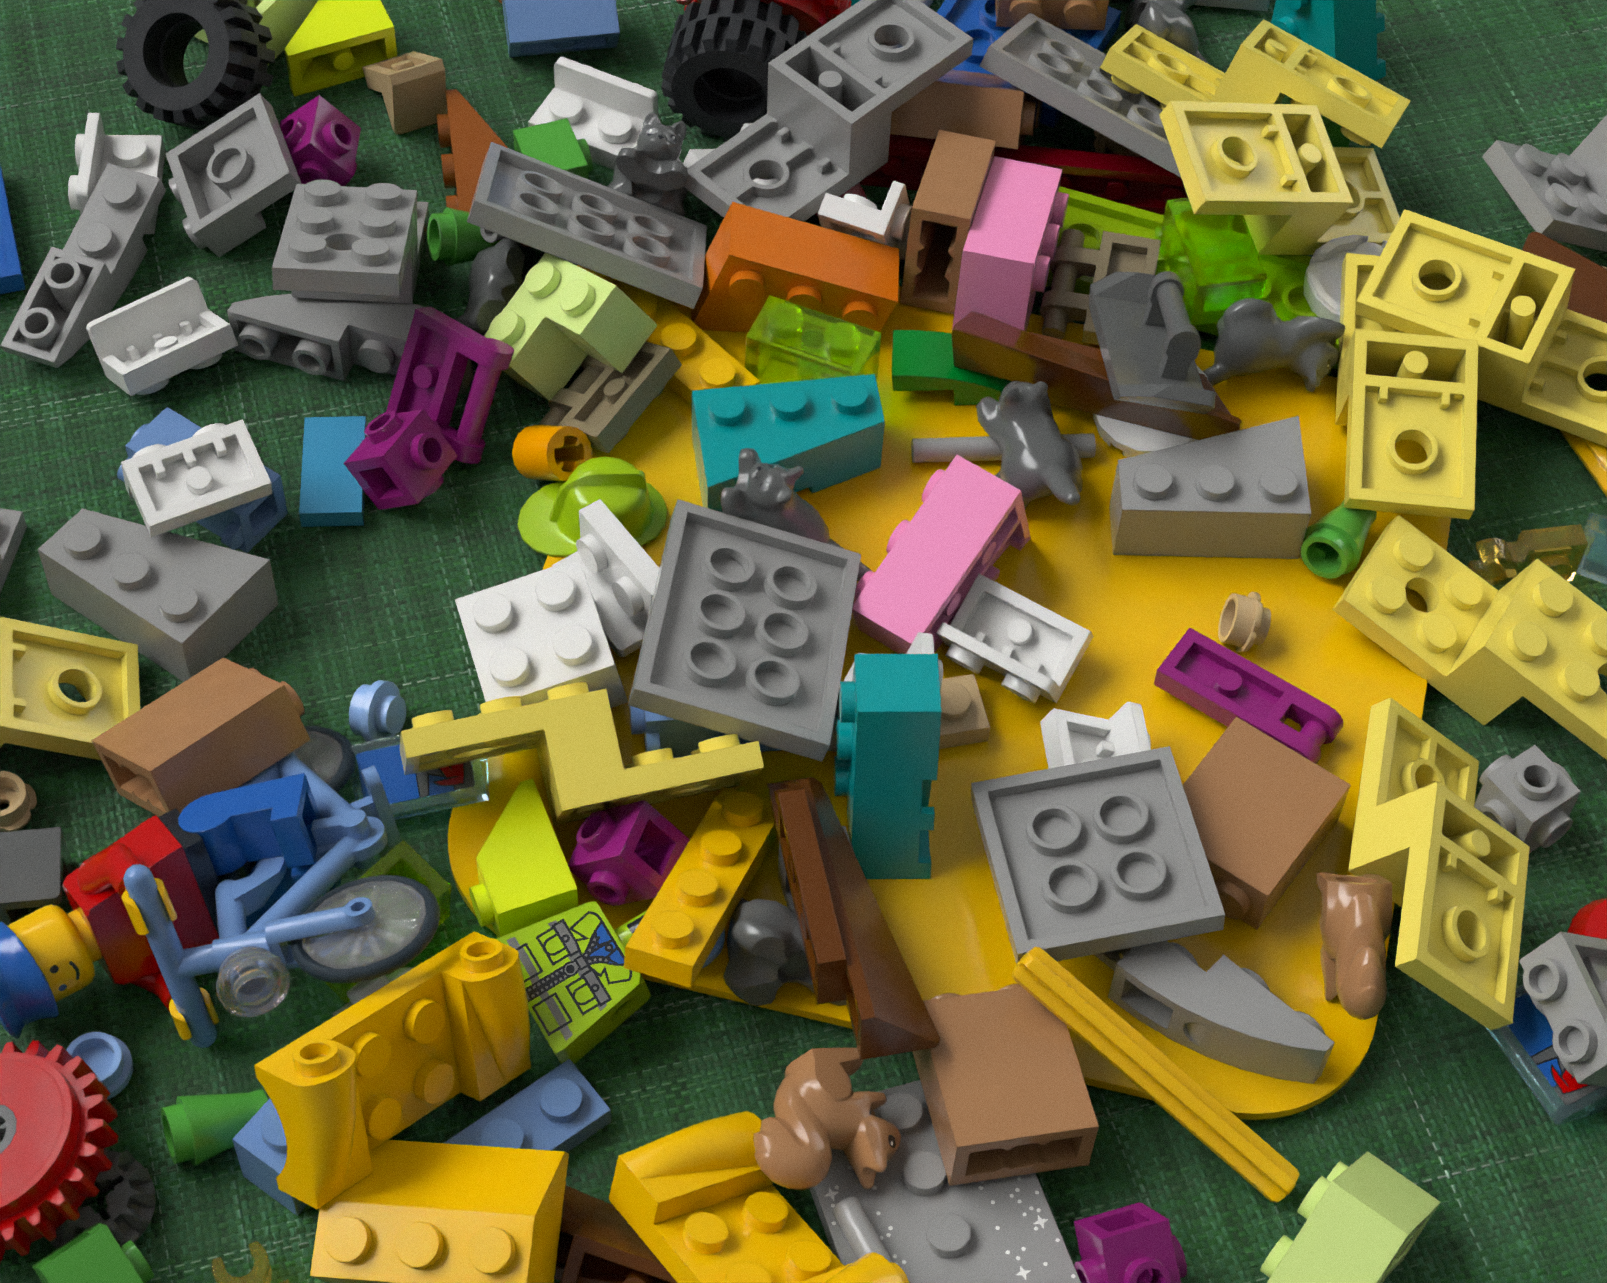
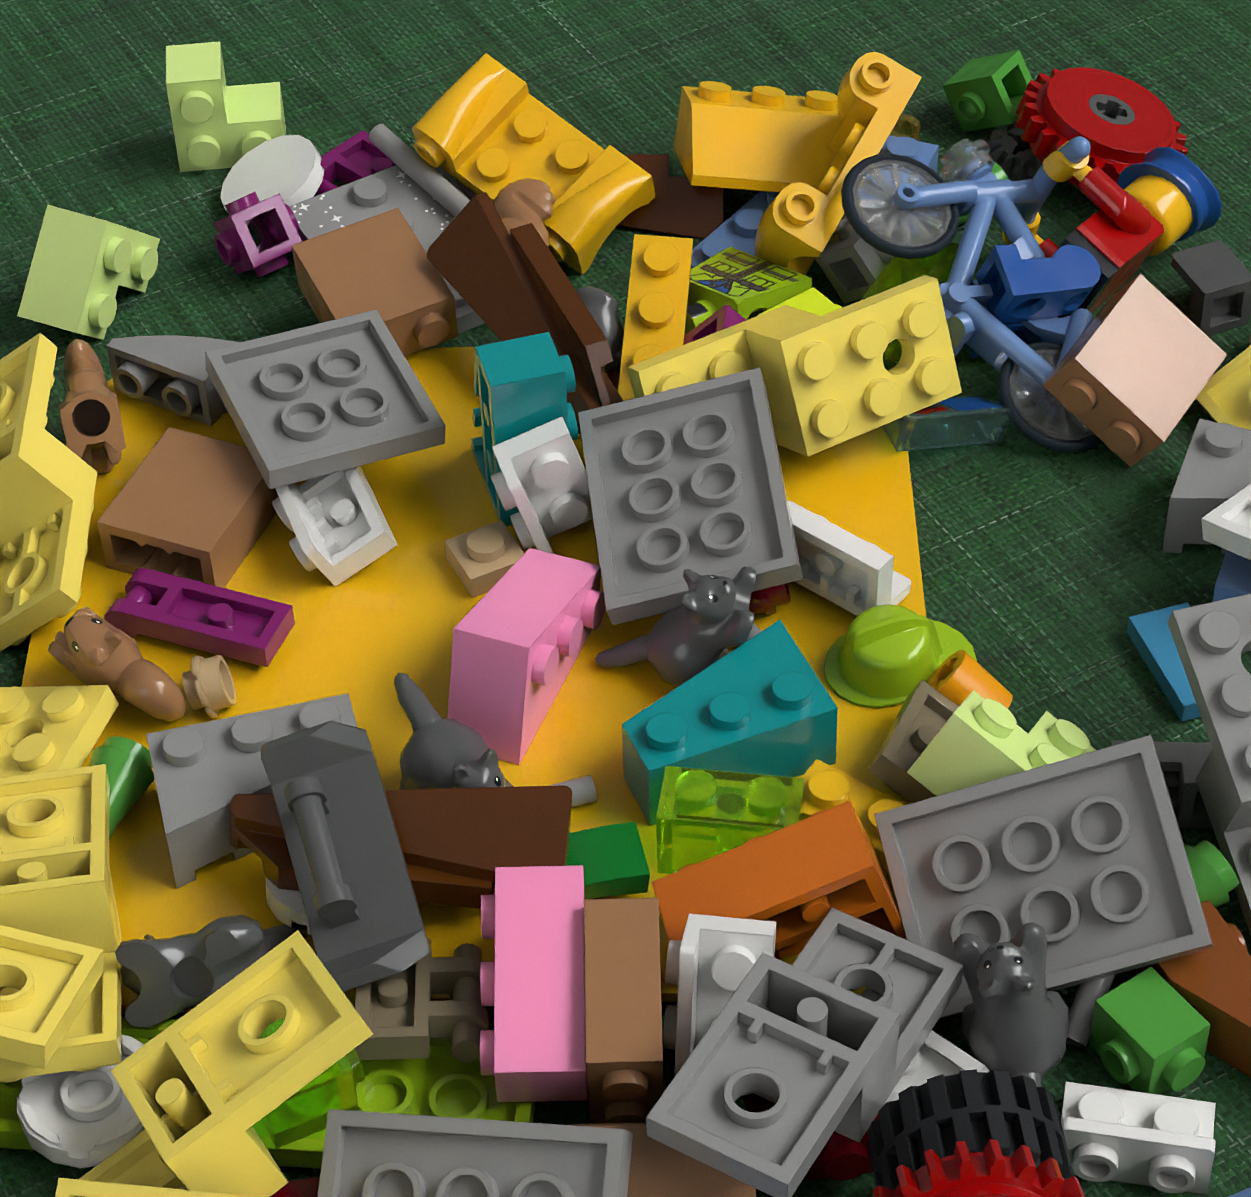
camera: 170 degrees right, 10 degrees down
(106, 1057) = (1072, 210): light blue plate -> none
(377, 711) = (1008, 459): light blue plate -> none
(401, 458) = (1114, 646): magenta brick -> none
(433, 373) = (1105, 705): magenta plate -> none
(539, 636) = (879, 477): white brick -> none
(1015, 638) = (427, 594): white bracket -> none
(1155, 1074) = (256, 313): yellow axle -> none
(1336, 643) = (107, 656): none -> medium nougat animal

